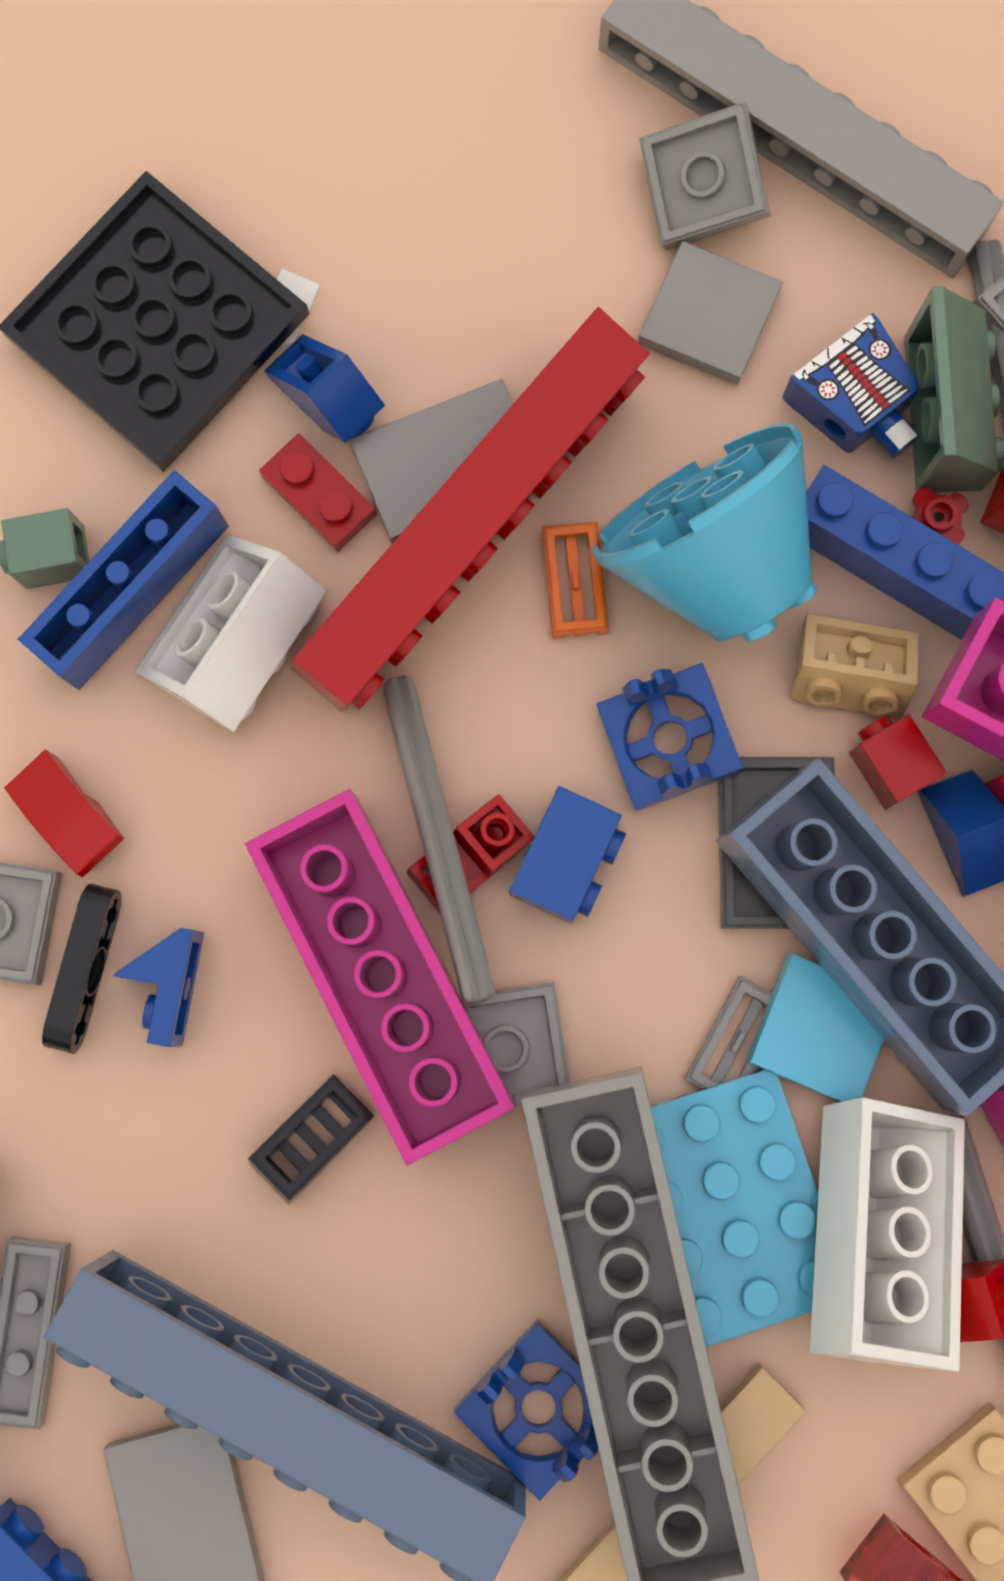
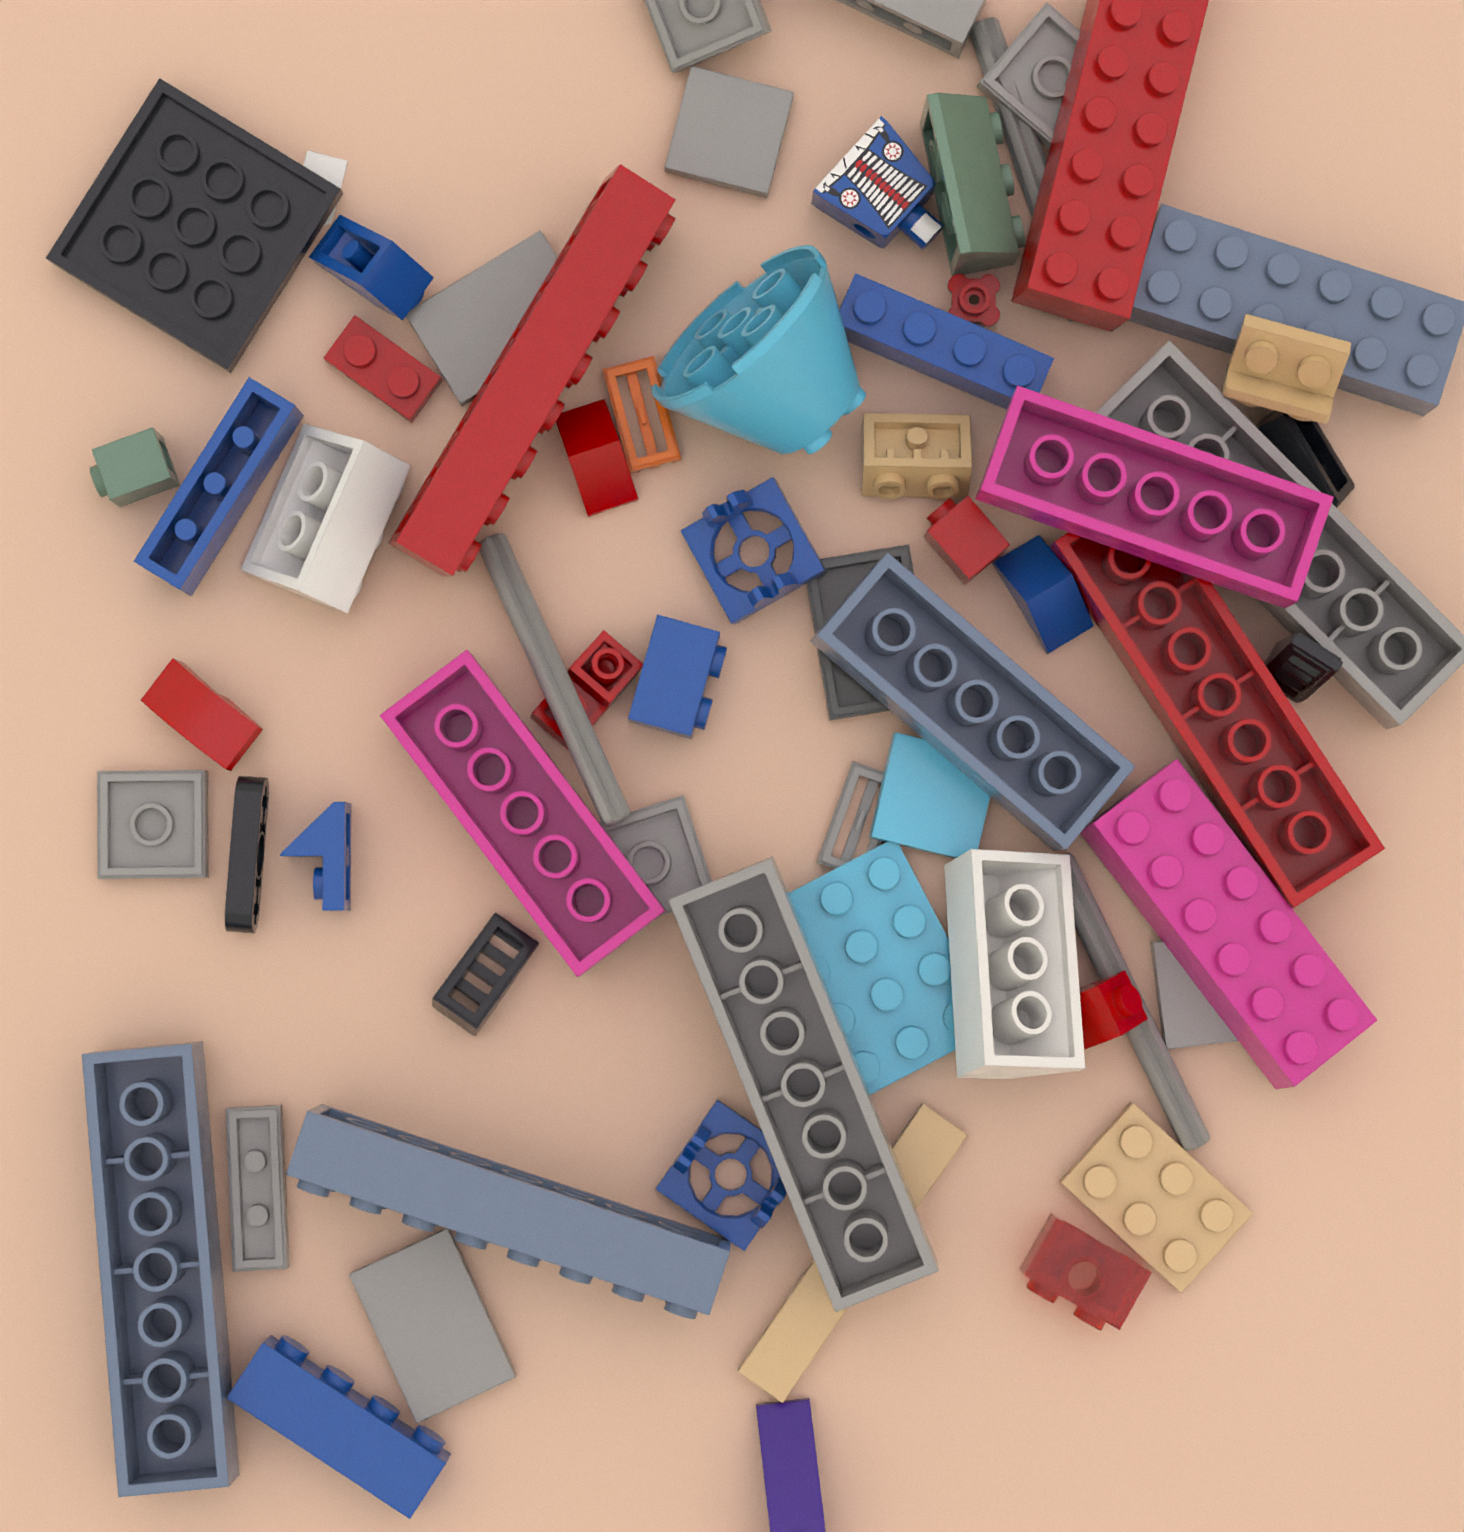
camera: 20 degrees left, 5 degrees up
(521, 616) = (596, 457): none -> red slope

